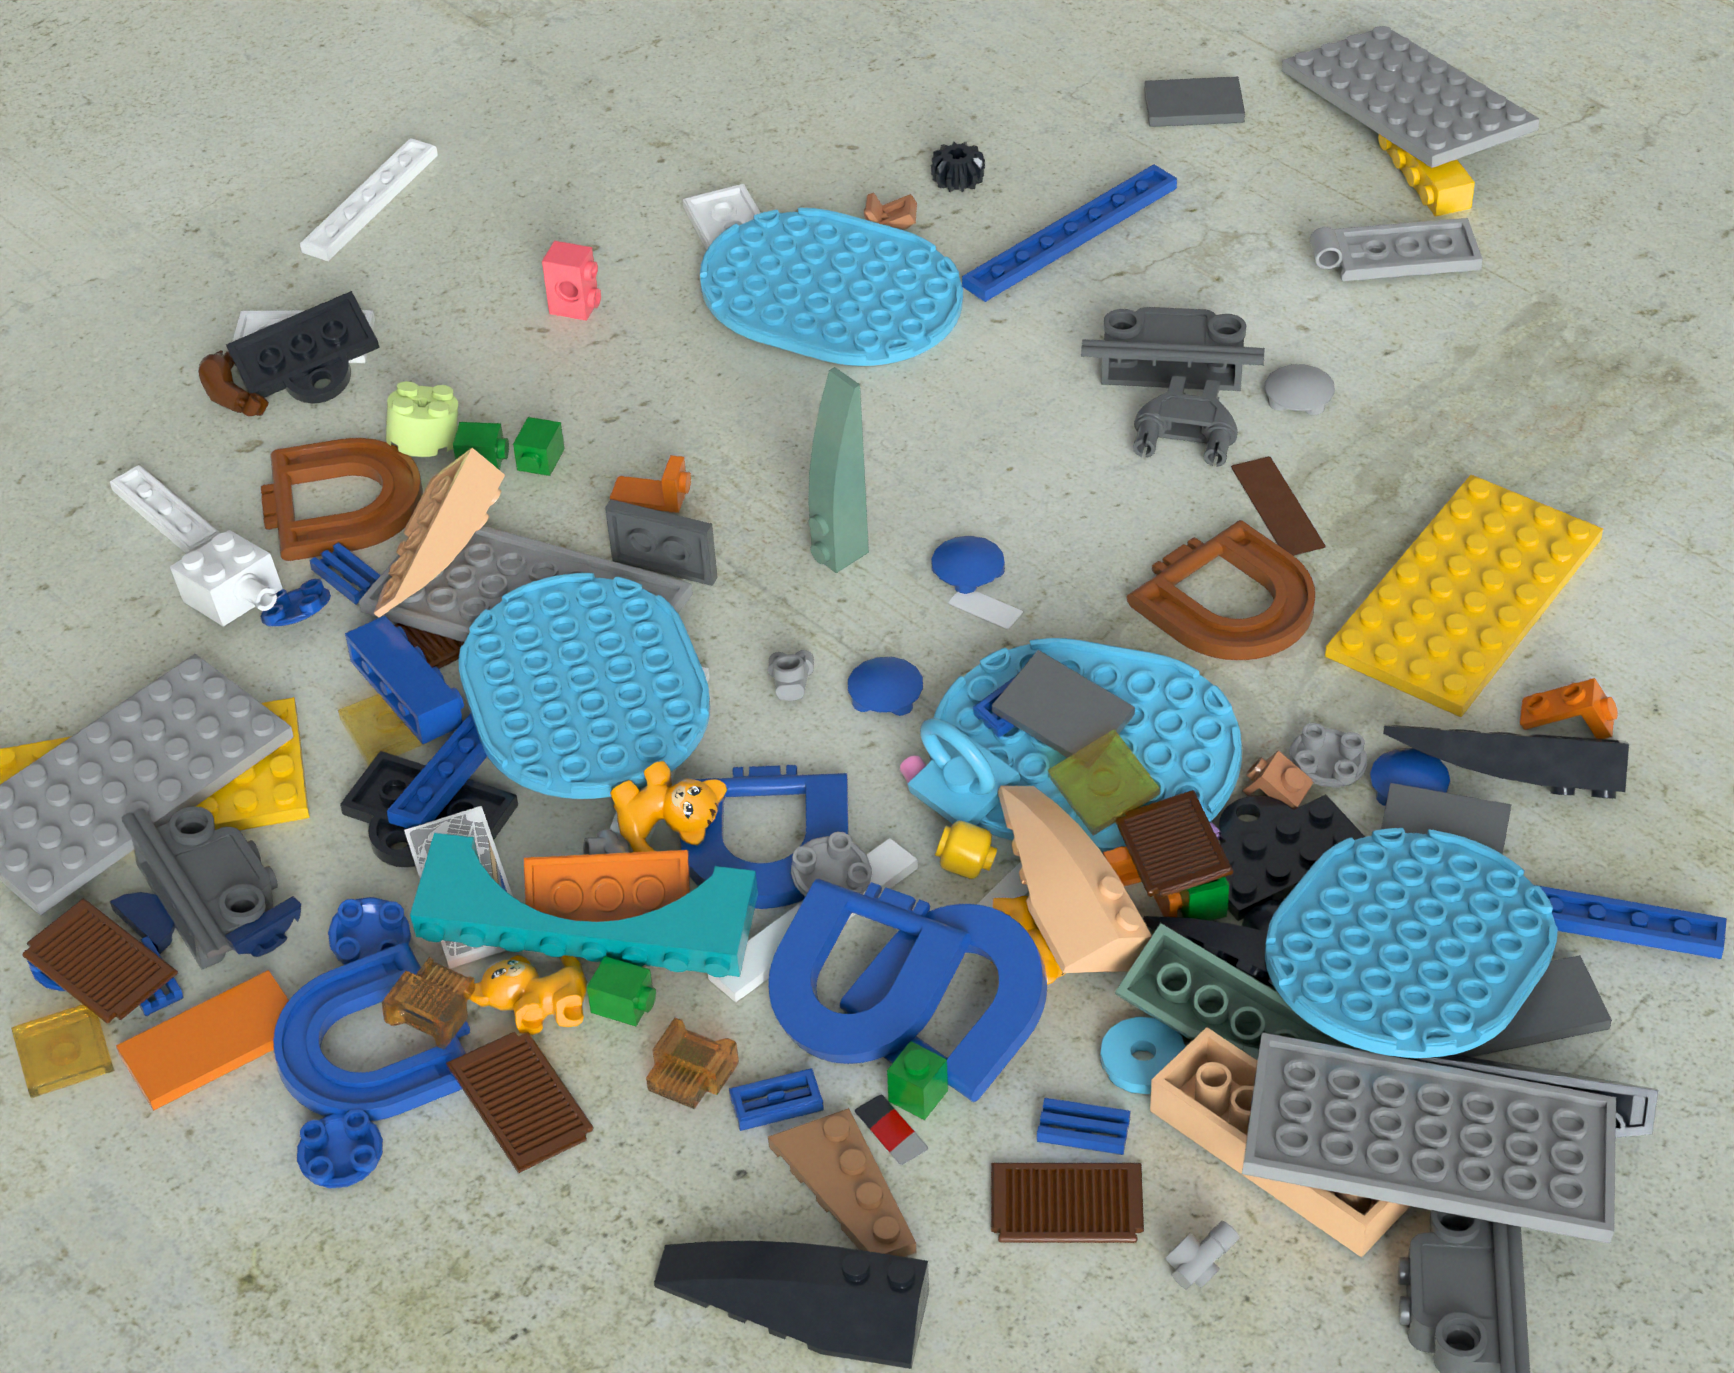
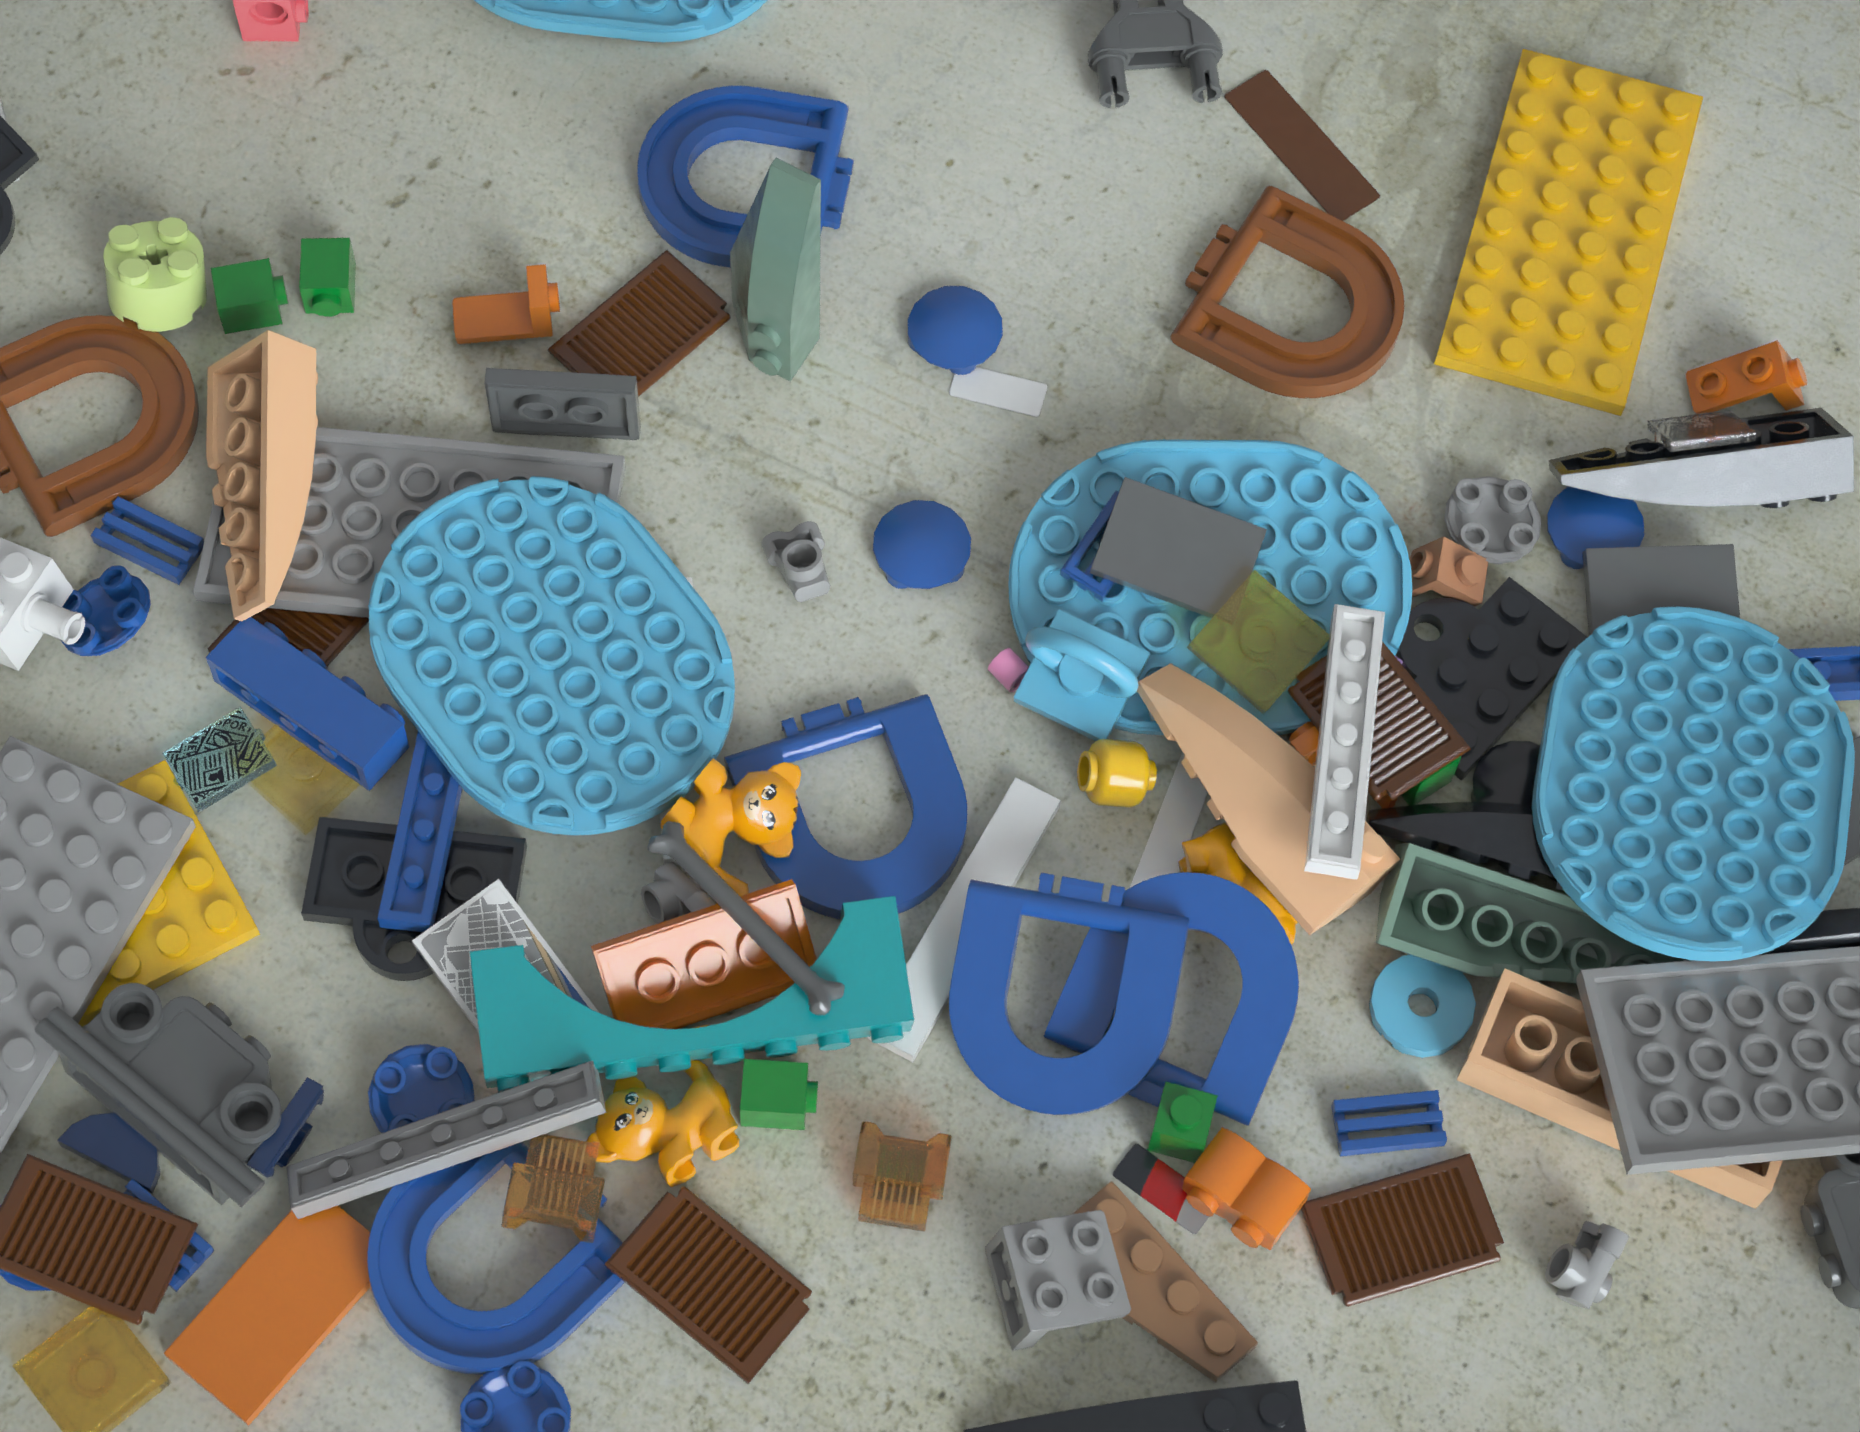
camera: 25 degrees left, 20 degrees up
(330, 704) = (219, 759): none -> clear light blue piece
(368, 951) = (445, 1139): none -> light grey tile
(670, 913) = (819, 991): none -> dark grey piece
(753, 519) = (644, 325): none -> reddish brown window
(777, 1105) = (980, 1214): blue tile -> none
(777, 1151) = (1056, 1275): none -> light grey bracket
(831, 860) = (968, 844): light grey dish -> none
(881, 415) = (731, 115): none -> blue piece
(948, 1136) = (1245, 1189): none -> orange brick
(1135, 846) = (1345, 742): none -> white tile
(1515, 729) = (1701, 430): none -> clear piece

